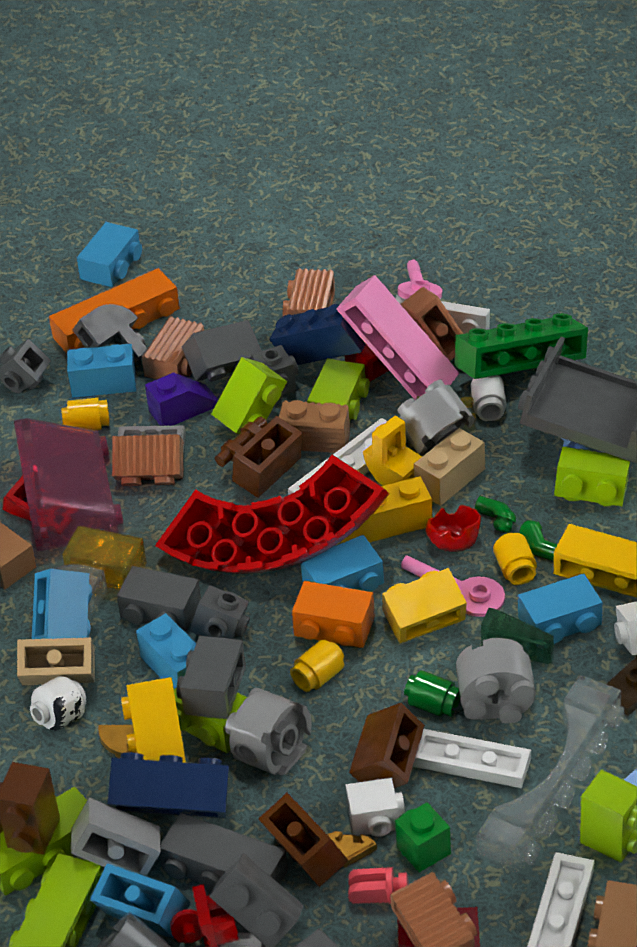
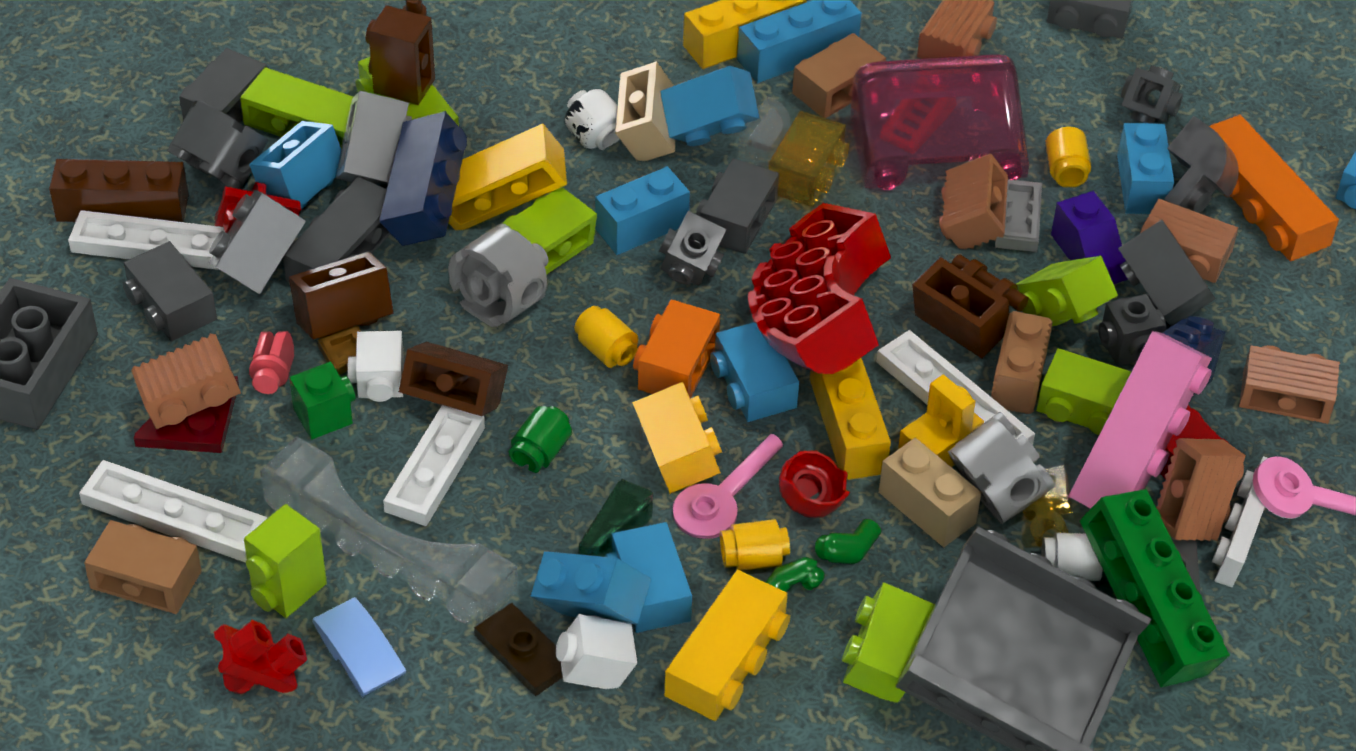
camera: 90 degrees right, 5 degrees up
(212, 677) = (560, 210): dark grey brick -> none
(495, 681) = (525, 482): light grey brick -> none
(594, 625) = (591, 586): none -> dark azure brick

